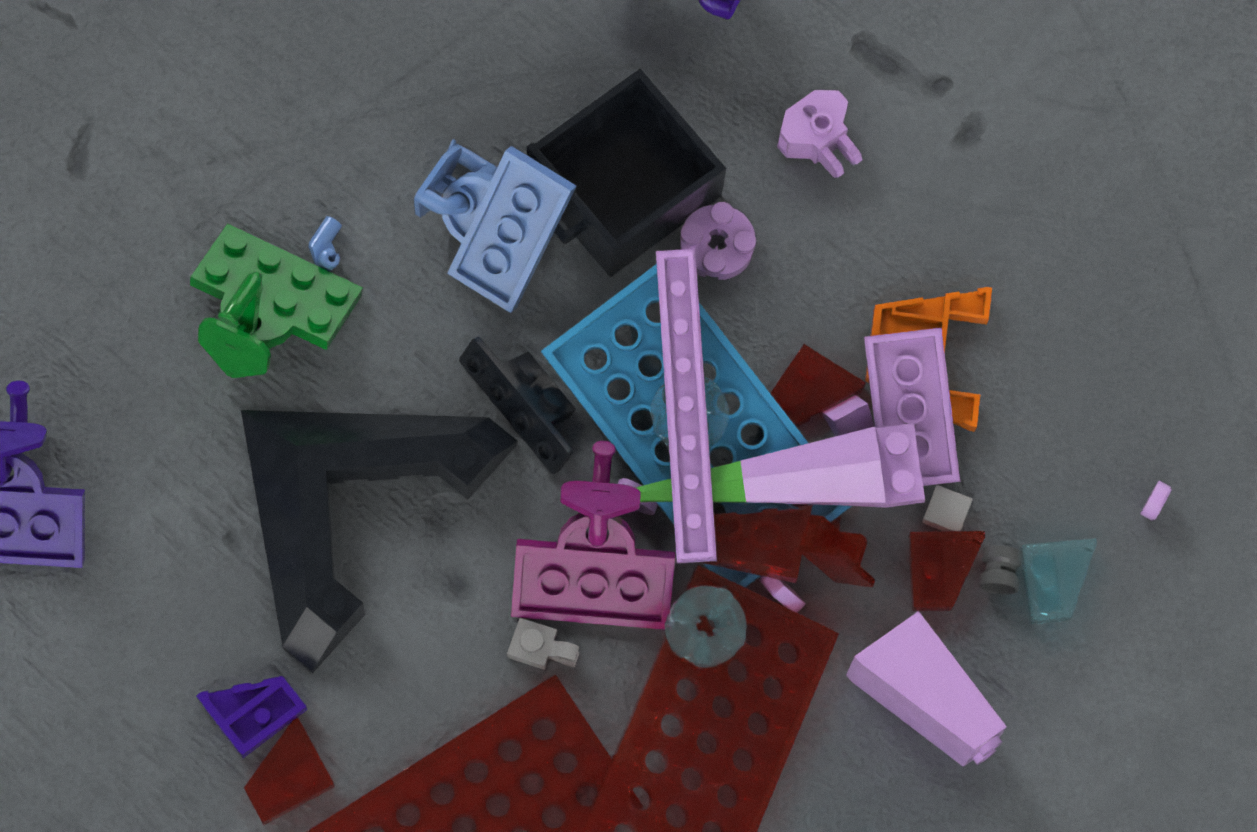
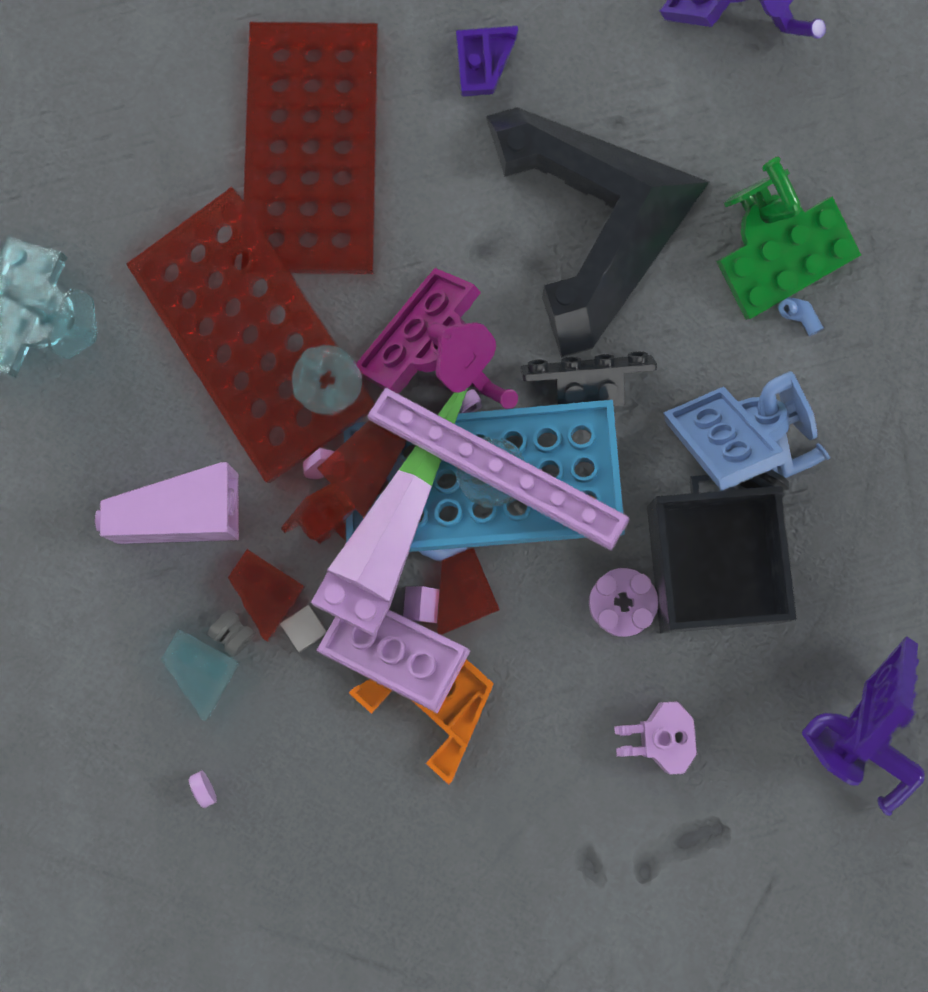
camera: 130 degrees right, 10 degrees up
(288, 775) = (425, 58): clear red wing -> none
(536, 645) = (402, 273): light grey plate -> none

